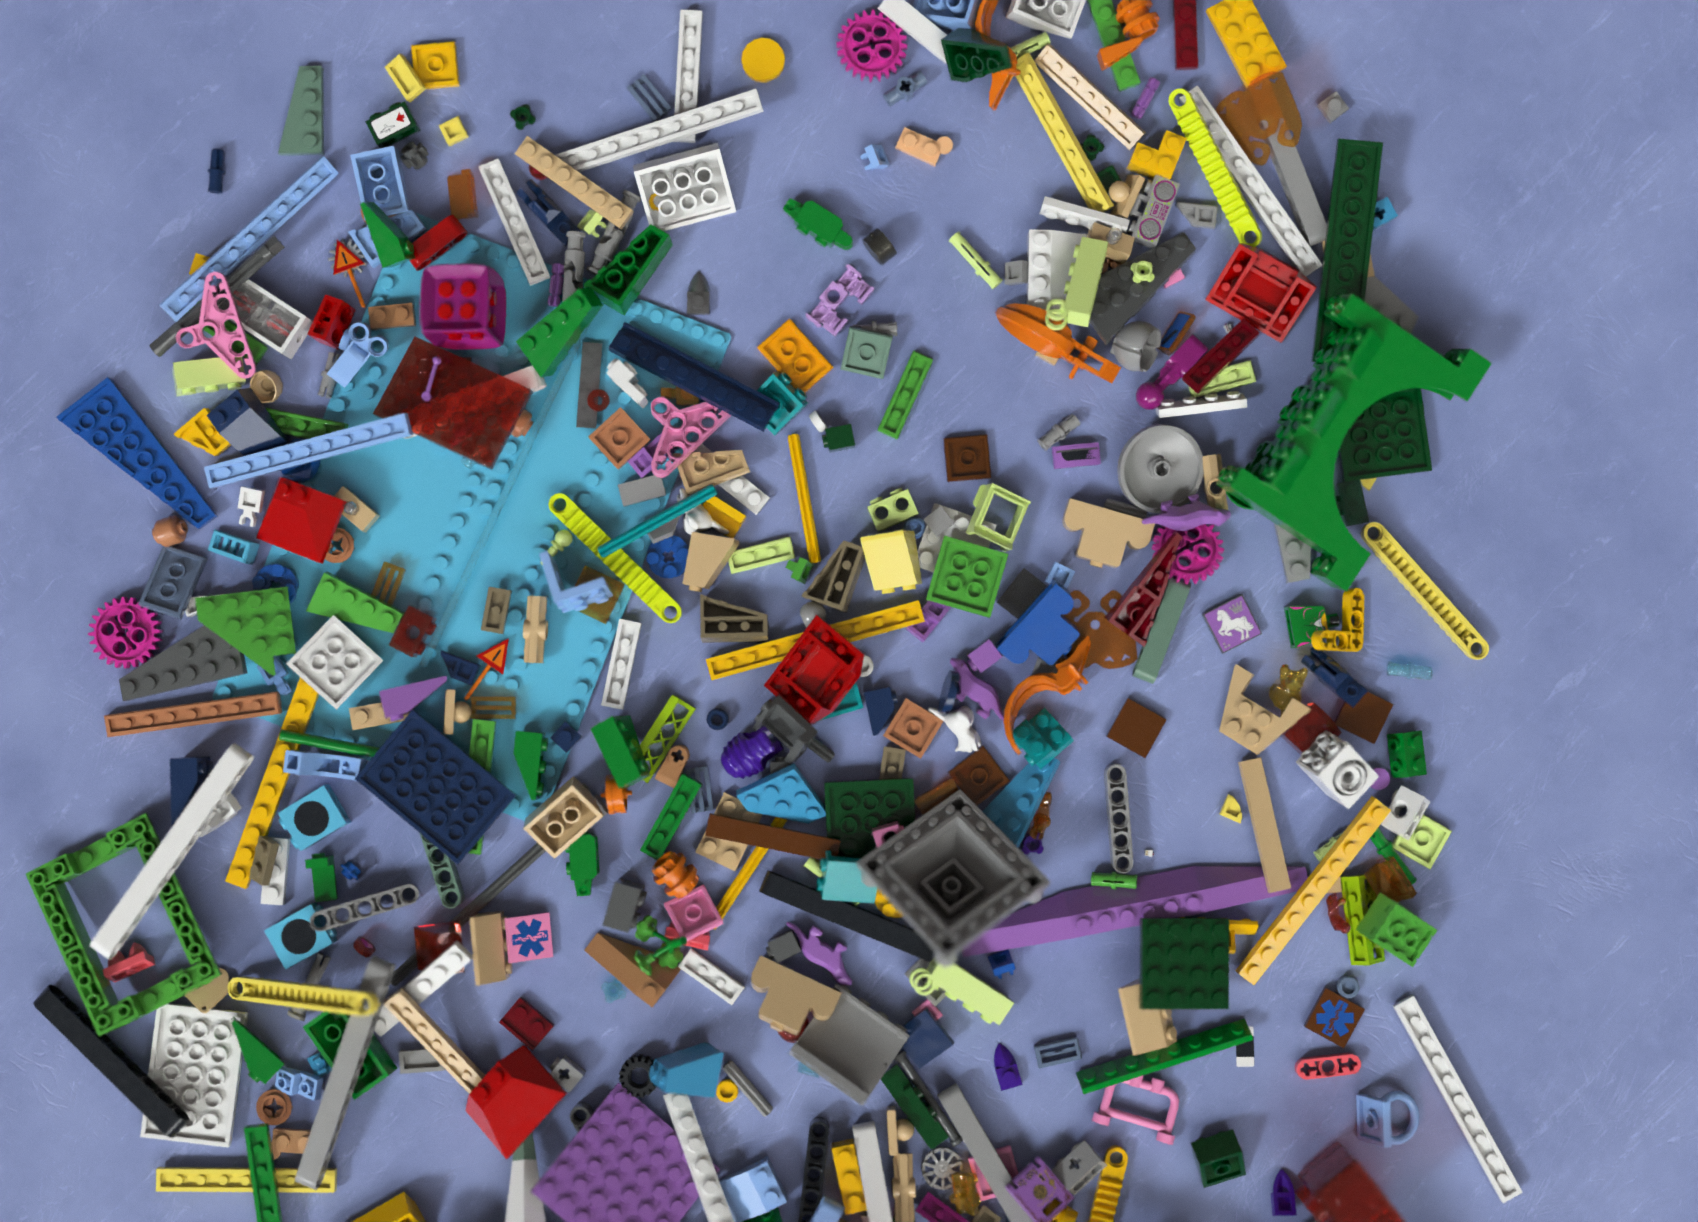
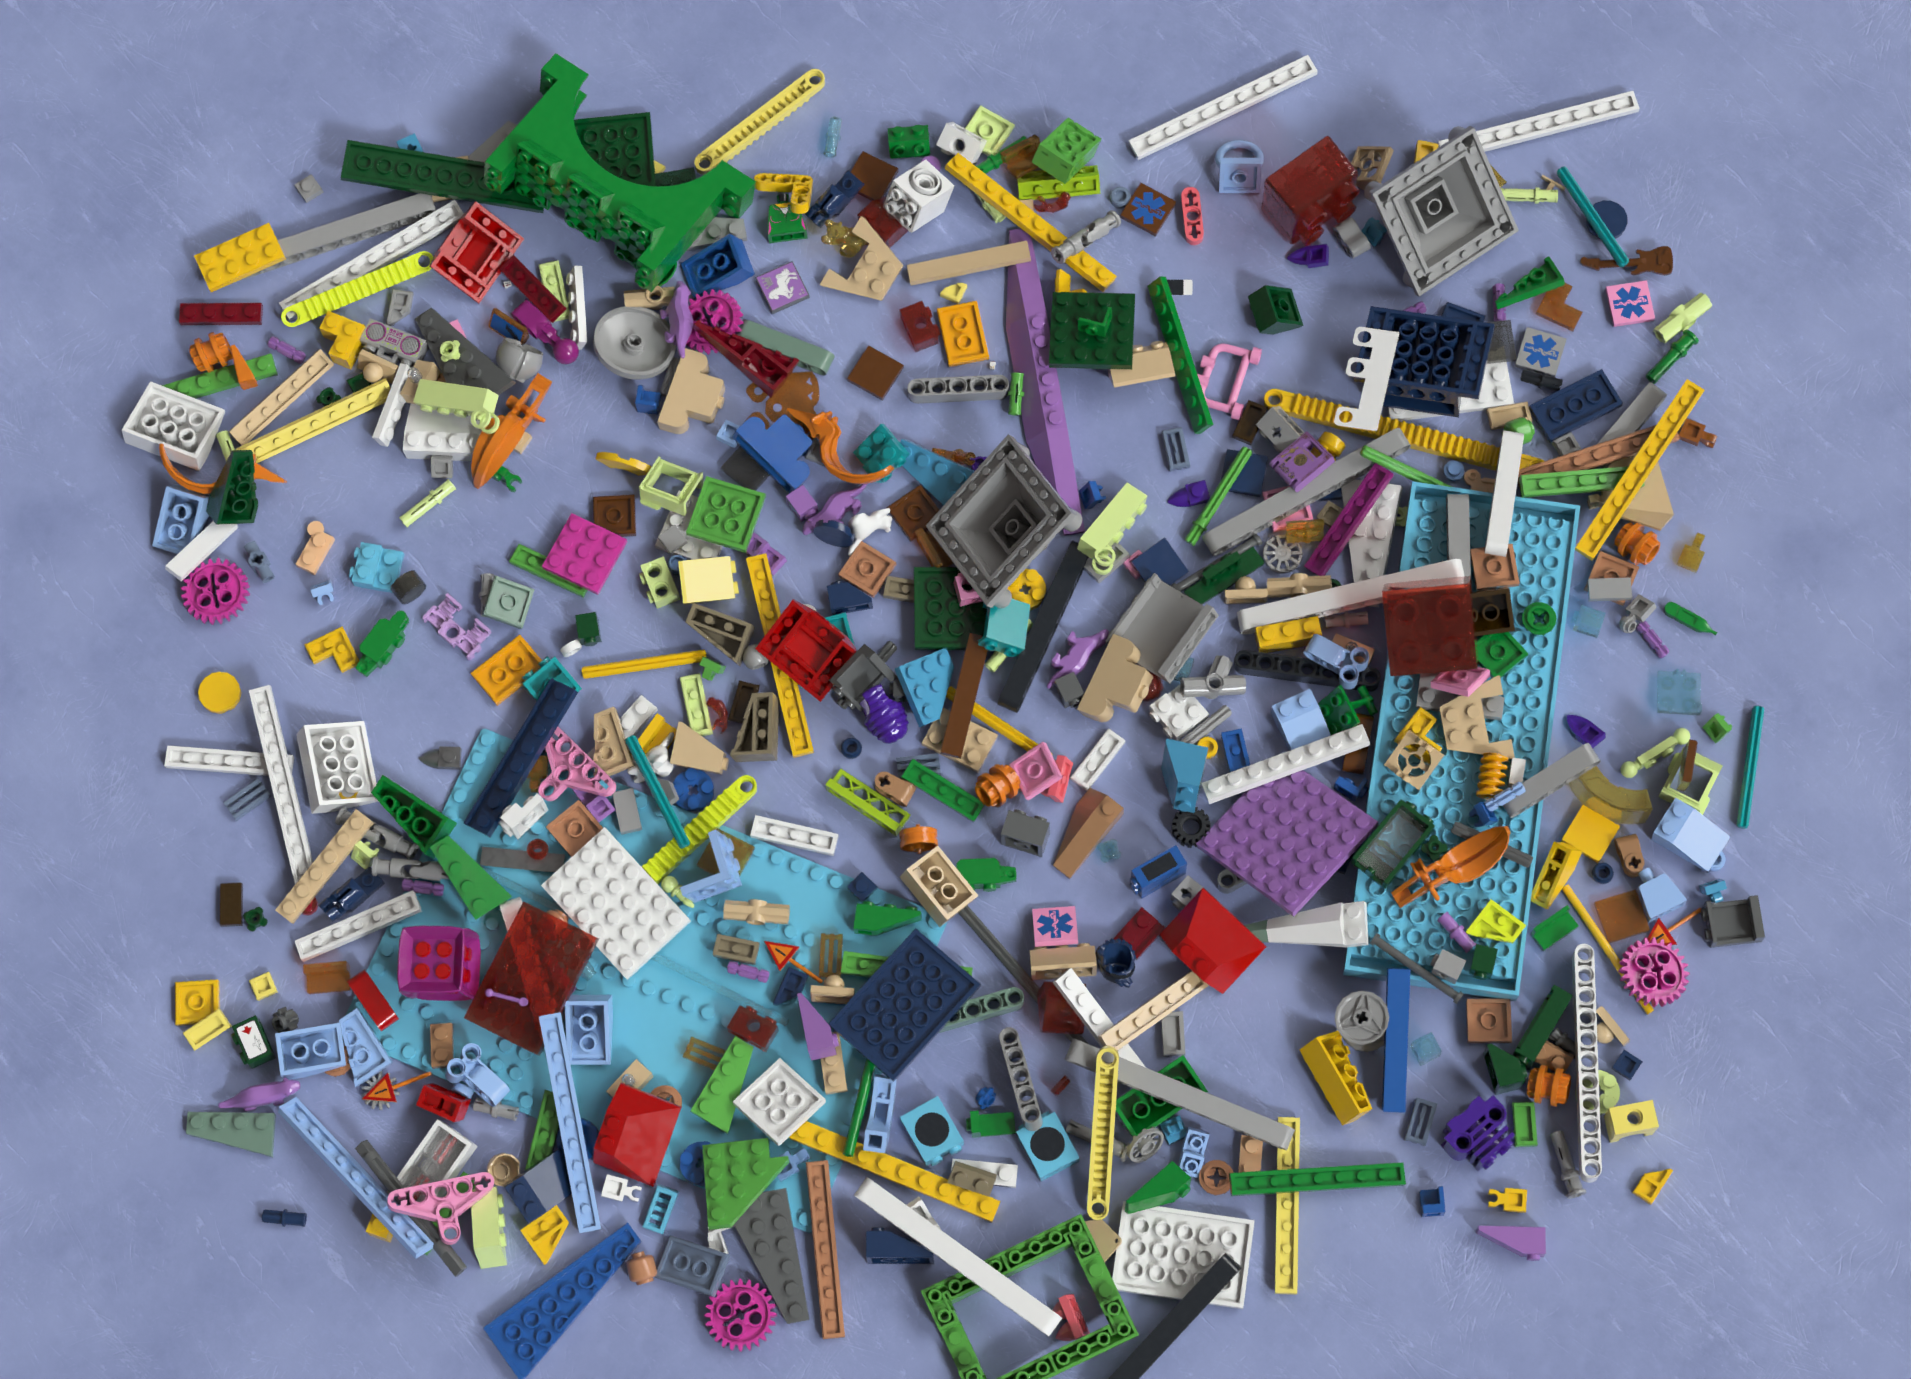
camera: 80 degrees left, 15 degrees down
(299, 1035) = (1145, 1145): none -> light grey wheel
(335, 138) = (262, 1095): none -> medium lavender animal
(390, 242) = (370, 1035): green slope -> none
(409, 464) = (589, 1029): none -> light blue slope
(474, 623) = (748, 971): none -> medium lavender axle
(491, 1002) = (1116, 961): none -> dark blue hair
(537, 91) = (231, 904): none -> dark brown tile
(539, 484) = (616, 902): none -> white plate
(585, 1044) = (1158, 872): none -> blue brick
(621, 750) = (876, 826): green wedge -> none
(668, 954) = (1074, 799): bright green plant -> none
(722, 1121) = (1235, 749): none -> blue plate
(757, 580) = (720, 709): none -> clear red piece
(764, 603) = (742, 700): none -> dark brown tile
(764, 1060) = (1177, 713): none -> white plate
(802, 1103) = (1217, 676): none -> light grey piece
(818, 176) = (334, 644): none -> yellow tile
(903, 212) = (376, 567): none -> medium azure plate
(921, 429) = (584, 554): none -> dark pink plate
(1003, 1100) = (1218, 496): none -> bright green axle
(1005, 344) = (507, 477): none -> green plate
(1023, 465) = (614, 461): none -> yellow tile
(1032, 1125) = (1251, 476): none -> dark blue tile
(1058, 432) = (594, 433): light grey pin -> none
(1076, 455) = (617, 418): medium lavender slope -> none
(1092, 1132) = (1246, 427): none -> dark brown tile
(1096, 486) = (647, 401): none -> blue panel
(1176, 774) = (920, 337): none -> clear red brick
(1181, 967) = (1095, 328): none -> green bracket
(1184, 820) = (962, 333): none -> light orange tile
(1252, 553) = (718, 266): none -> blue slope
(1255, 105) = (303, 251): clear orange piece -> none
(1295, 952) = (1095, 230): none -> light grey piece

